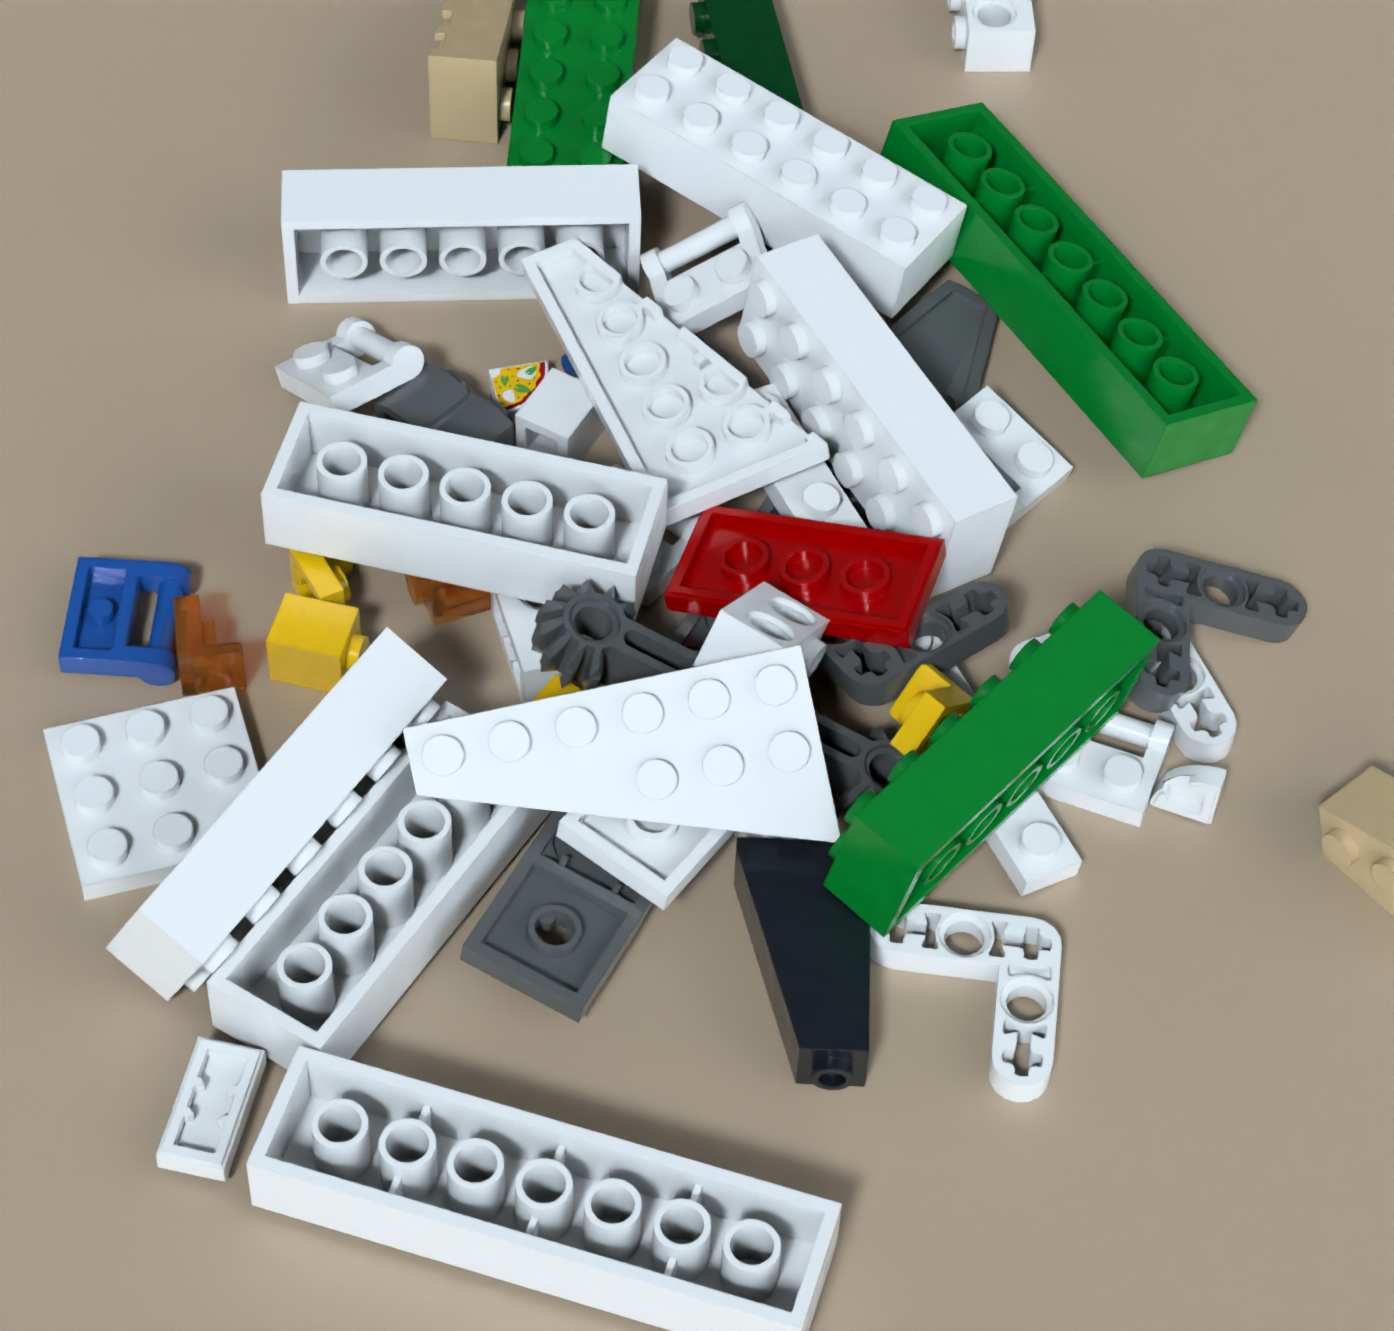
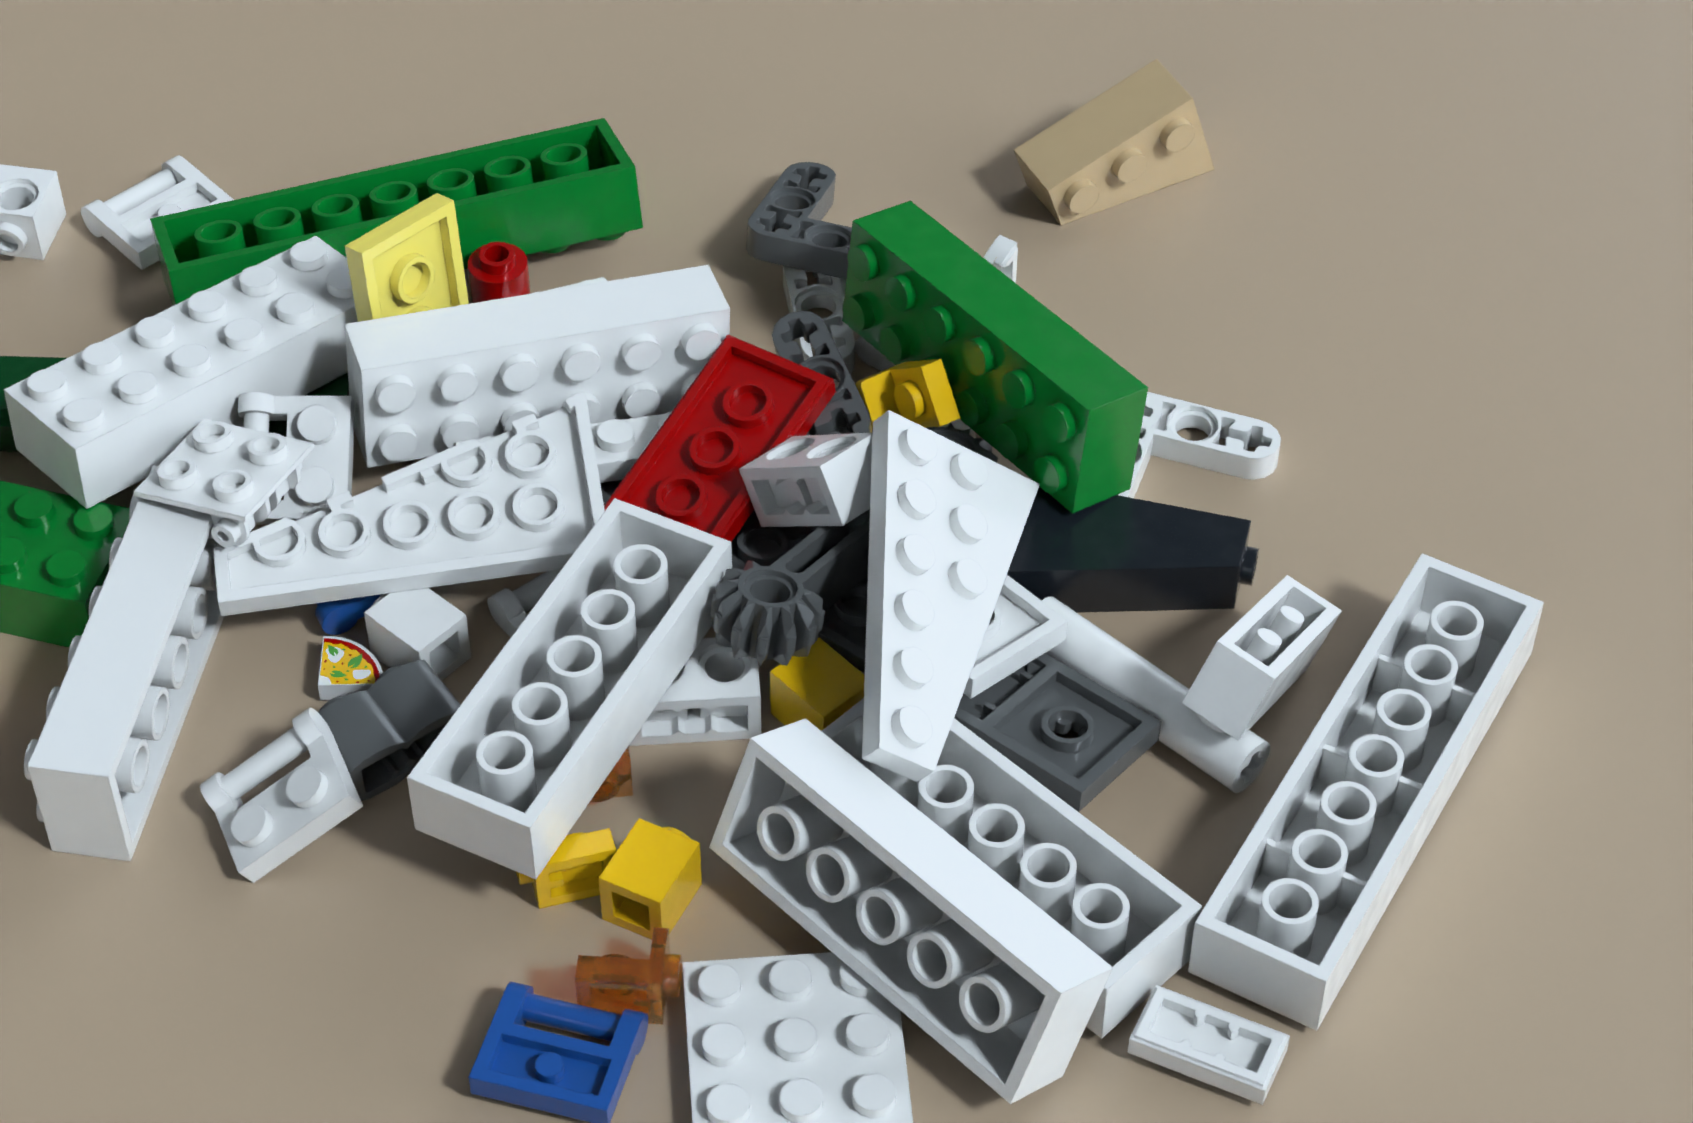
camera: 75 degrees left, 5 degrees down
(631, 1003) = (1158, 694): none -> white piece
(636, 211) = (228, 474): none -> white hinge
(664, 1073) = (1260, 658): none -> white brick
(909, 273) = (409, 263): none -> light yellow plate
(1020, 377) = (498, 272): none -> red brick
(1048, 125) = (126, 217): none -> white plate

